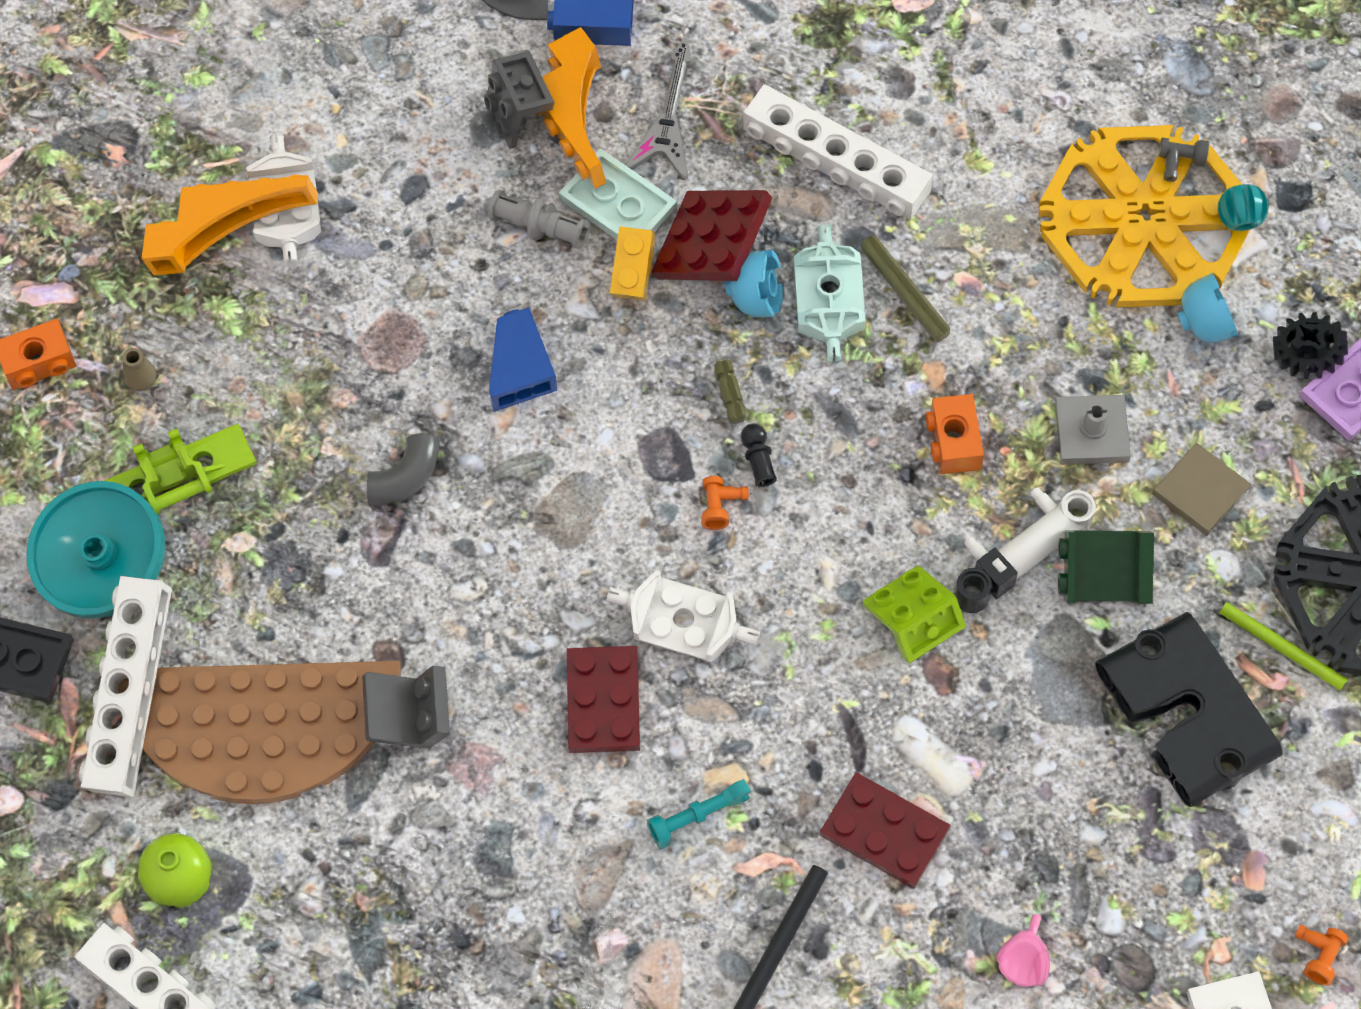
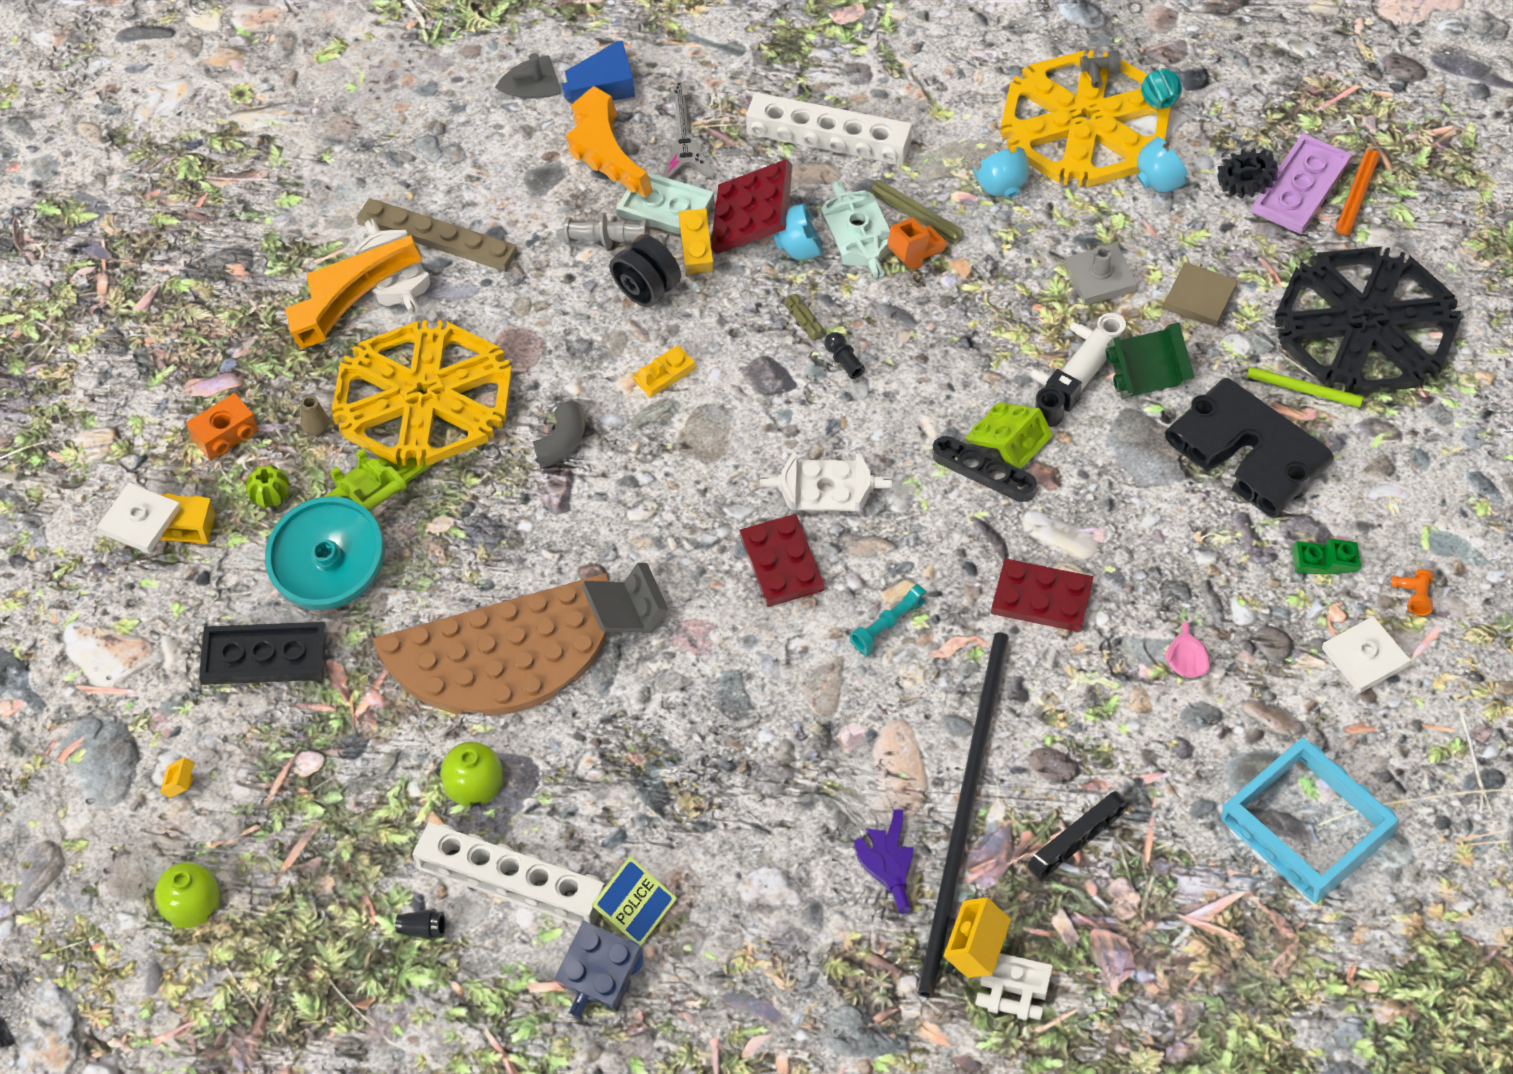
camera: 15 degrees left, 10 degrees down
(60, 445) = (267, 486): none -> lime piece
(134, 704) = (400, 715): white brick -> none
(245, 369) = (418, 409): none -> yellow plate
(350, 169) = (440, 234): none -> dark tan plate
(515, 93) = (554, 142): dark grey bracket -> none
(519, 362) = (628, 335): blue slope -> none
(548, 417) = (664, 371): none -> yellow plate
(562, 287) = (645, 270): none -> black wheel
(715, 516) = (824, 406): orange piece -> none
(867, 651) = (986, 465): none -> black beam
(885, 334) = (914, 242): none -> orange brick
(956, 415) = (995, 301): orange brick -> none
(1020, 270) = (1003, 173): none -> medium azure cylinder
(1231, 878) = (1332, 558): none -> green slope

